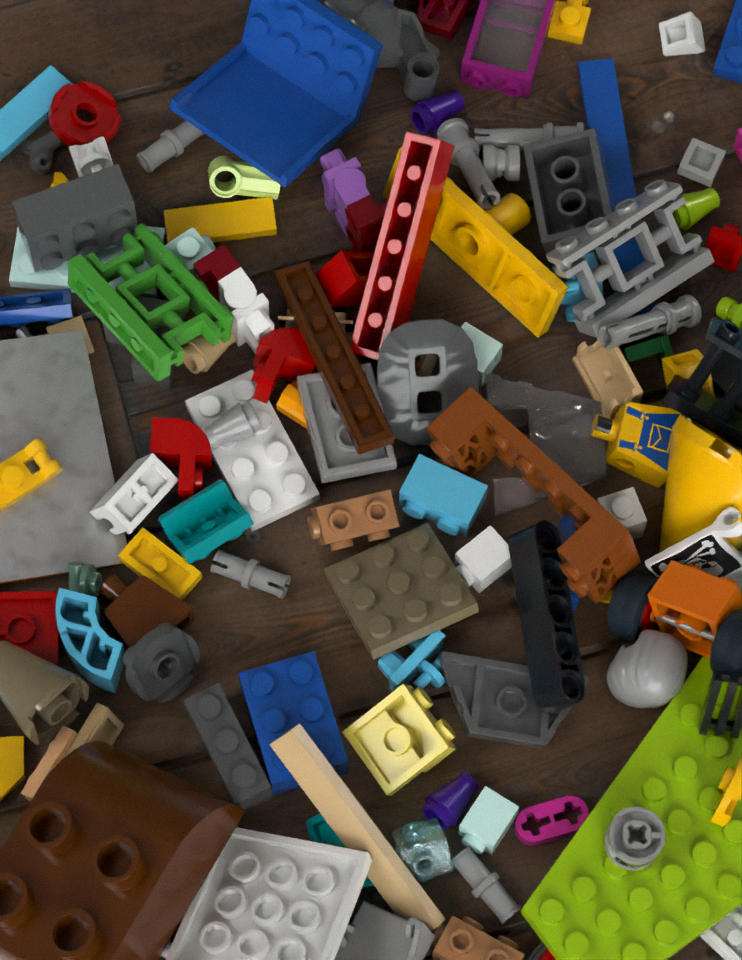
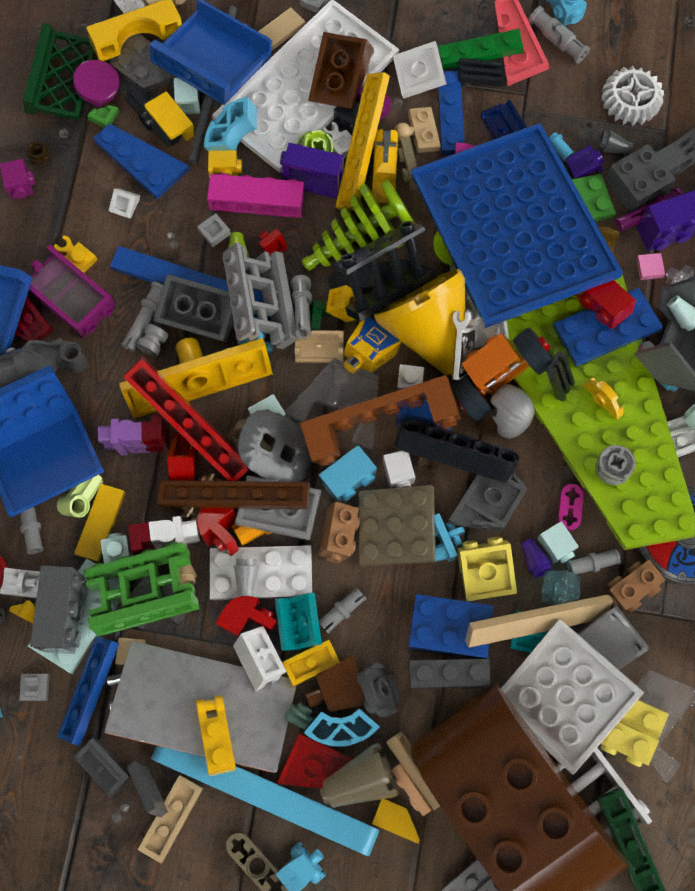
camera: 65 degrees left, 5 degrees up
(433, 112) = (98, 363): dark purple cone -> none
(466, 157) = (129, 356): light grey pin -> none

